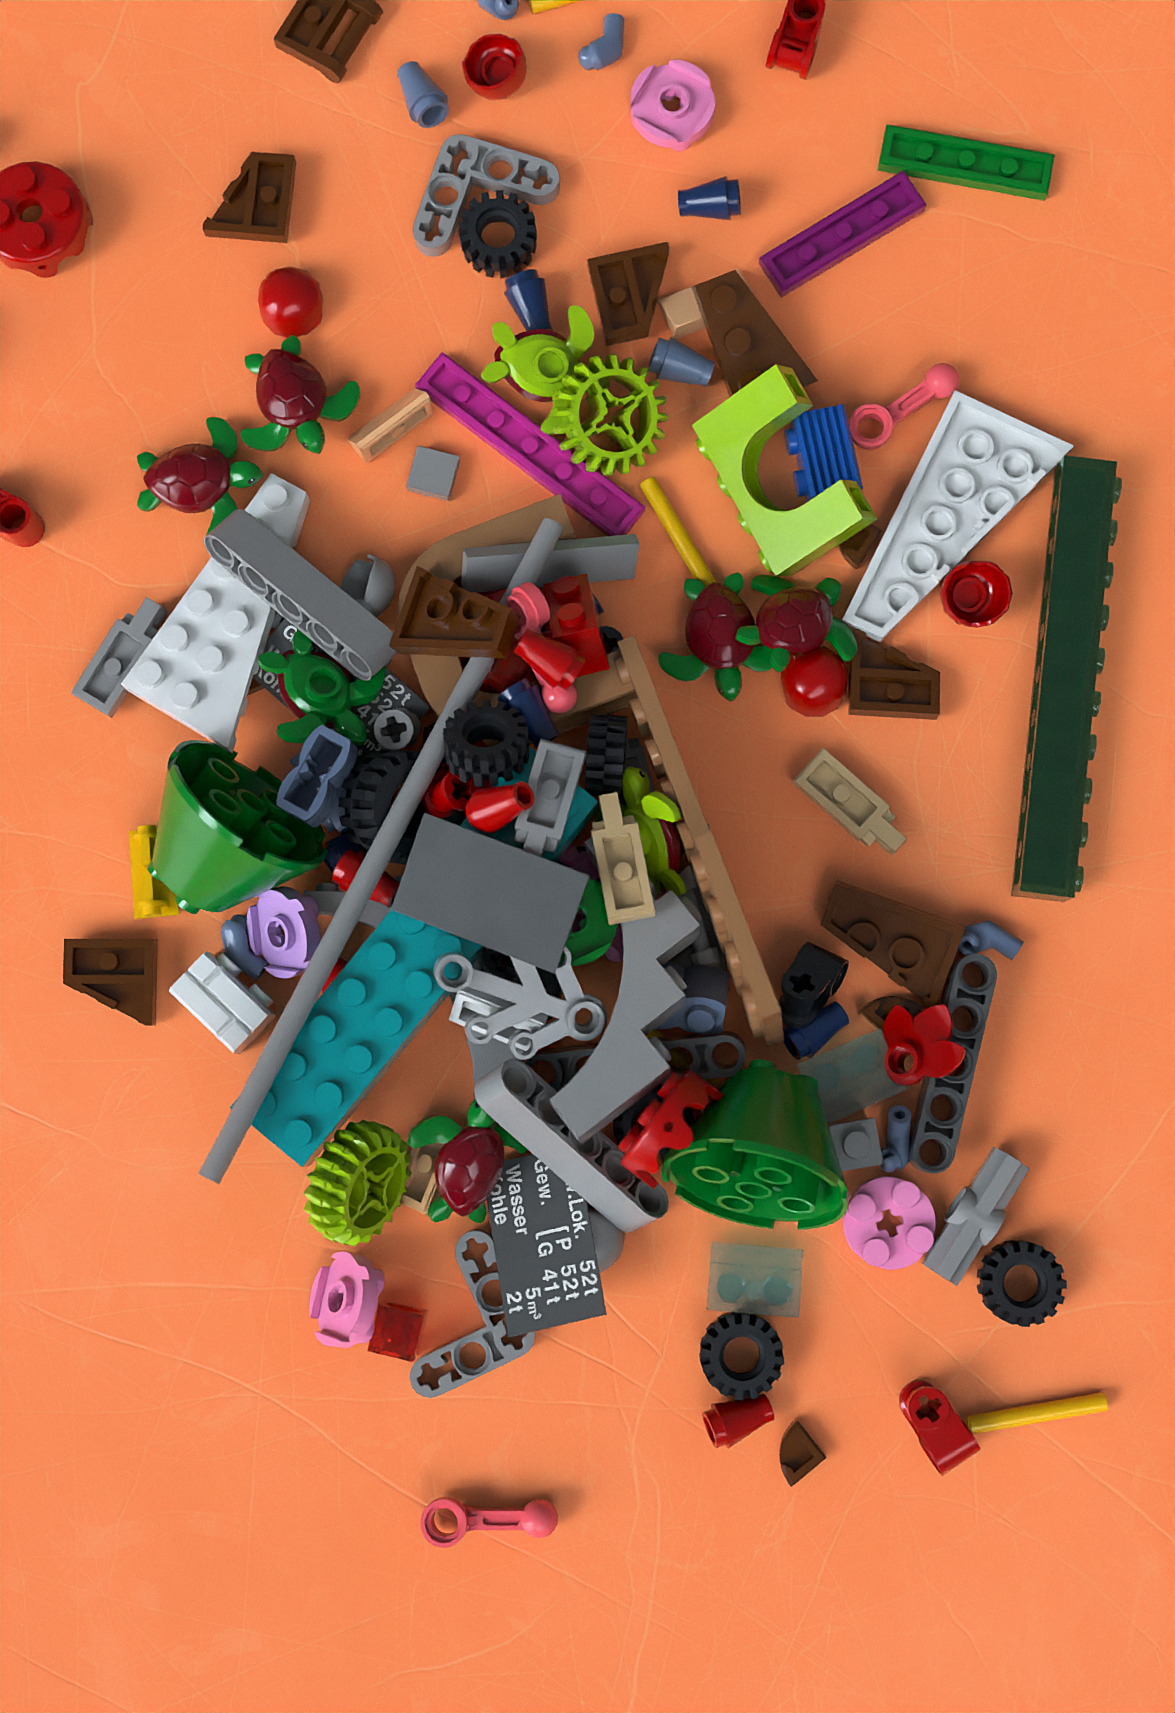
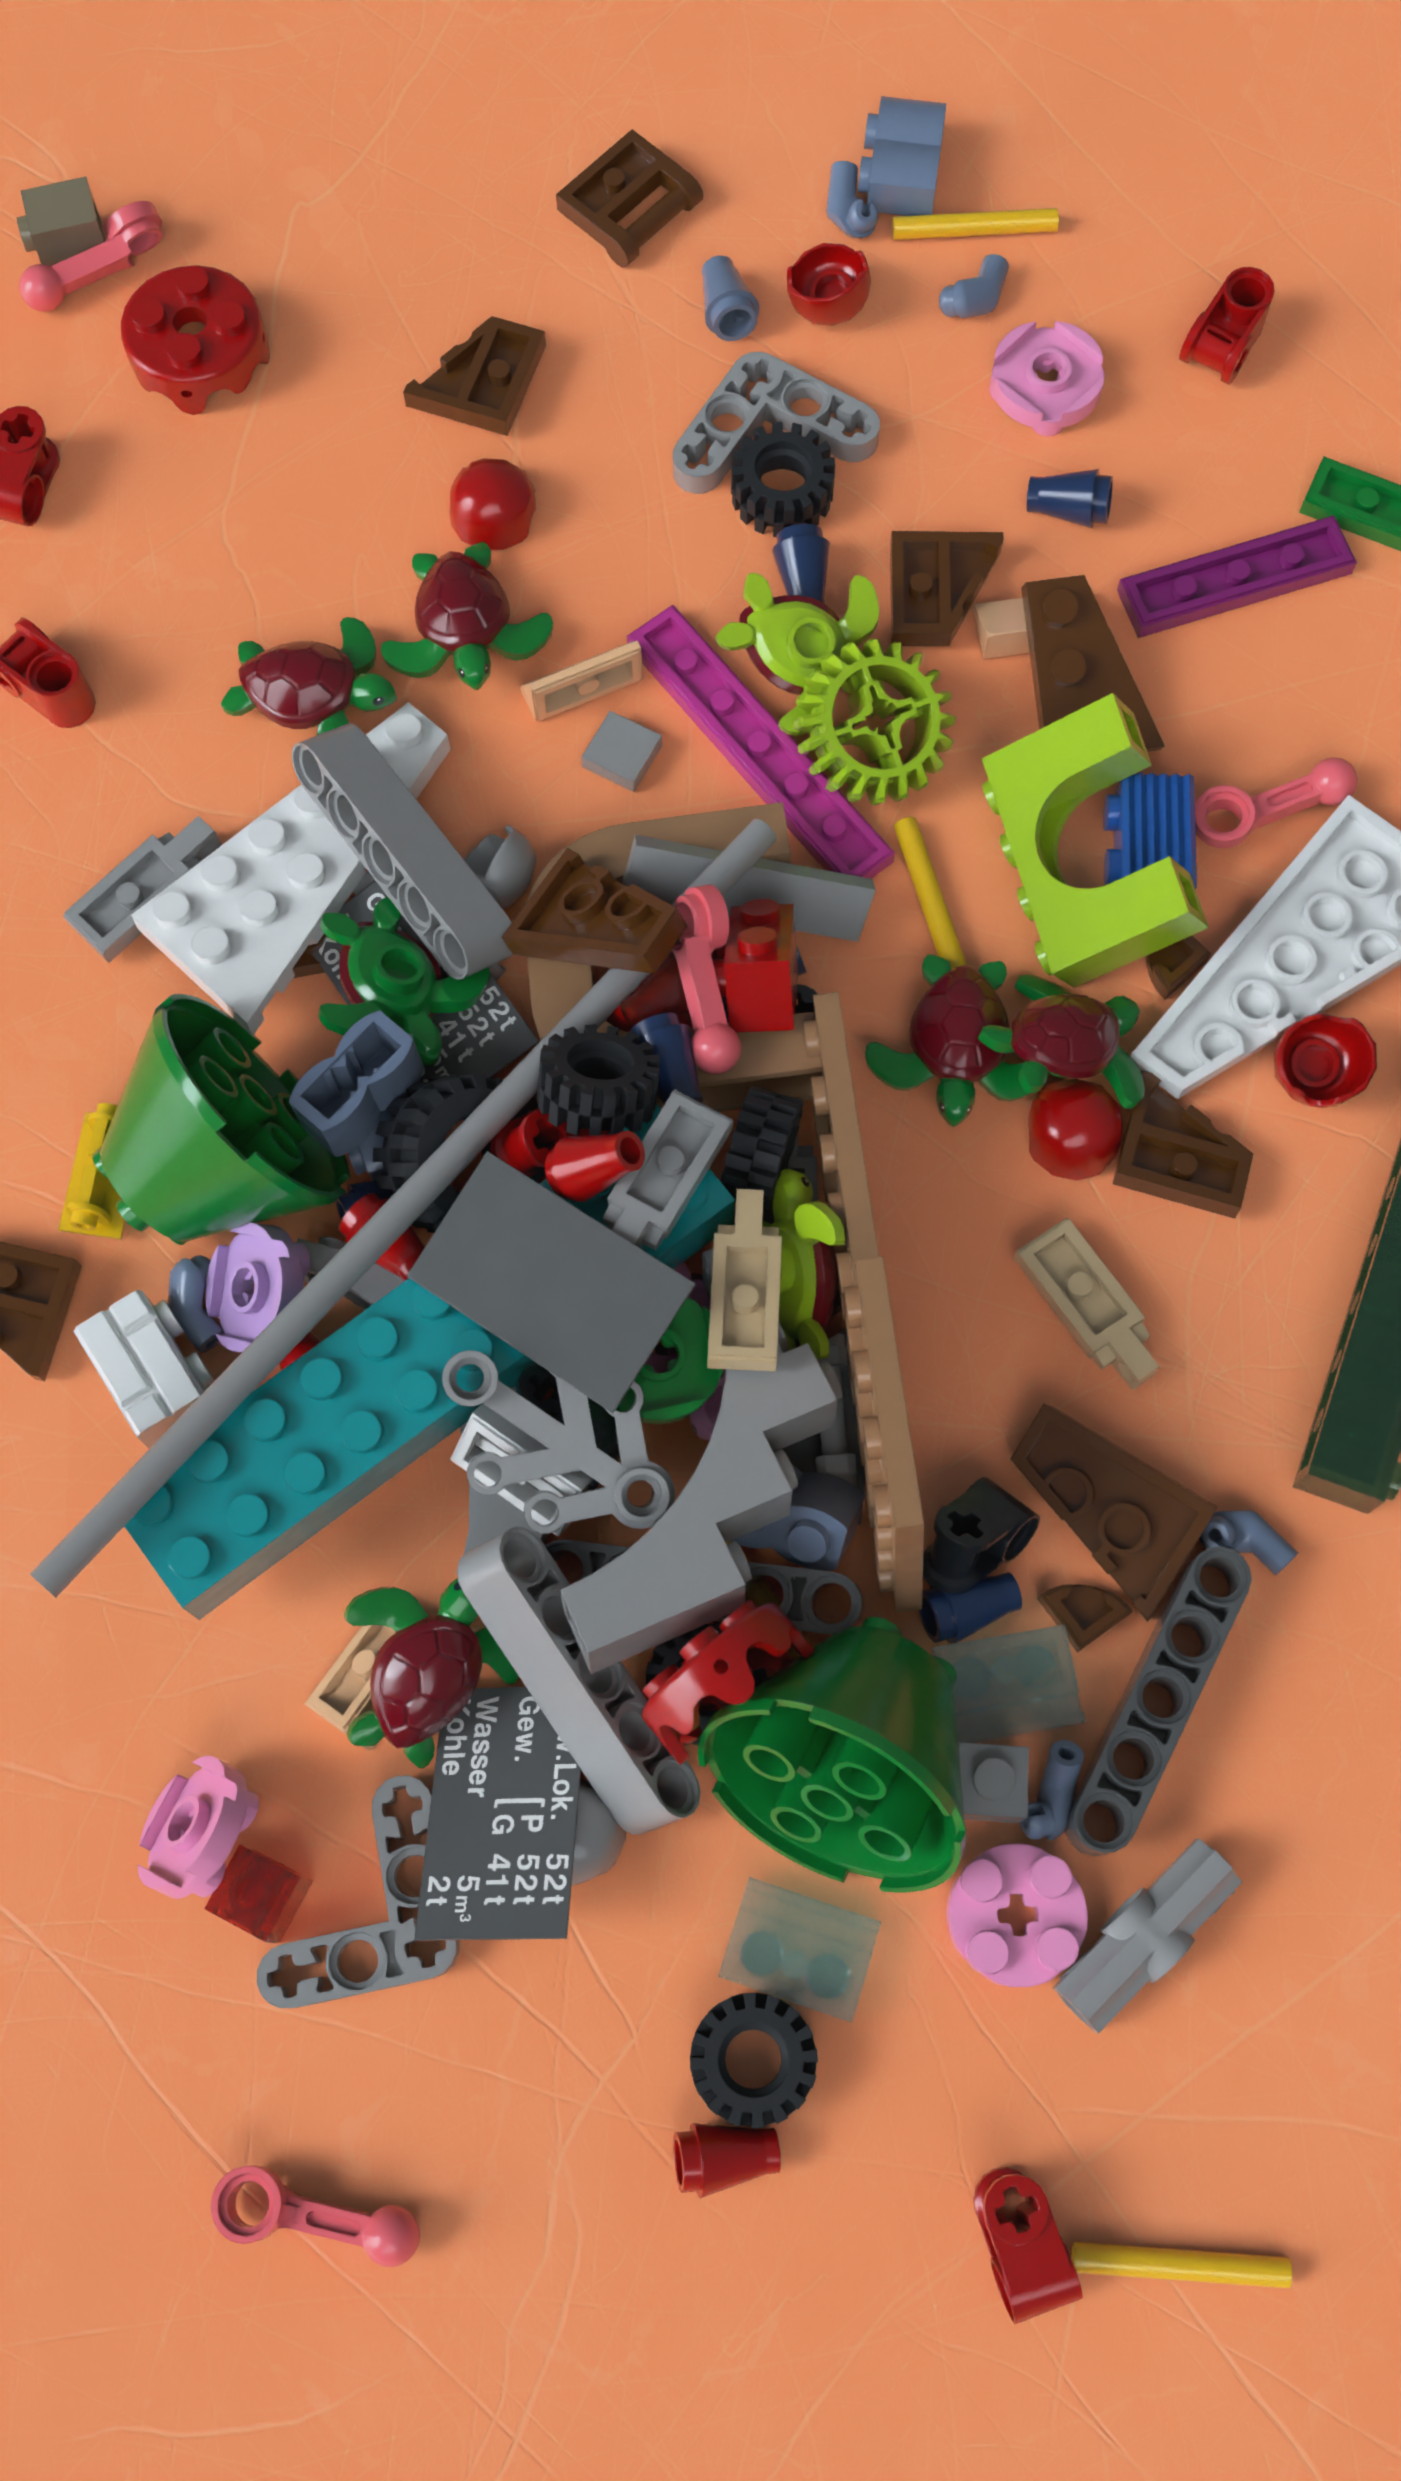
camera: 10 degrees right, 10 degrees down
(357, 1182) = (258, 1659): lime gear -> none
(394, 741) = (473, 1040): light grey bush -> none
(550, 658) = (714, 987): red cone -> none
(679, 363) = (984, 684): sand blue cone -> none
(798, 1453) = (804, 2235): reddish brown tile -> none
(925, 1039) = (1127, 1653): red plate -> none
(1048, 1290) = (1239, 2047): black tyre -> none

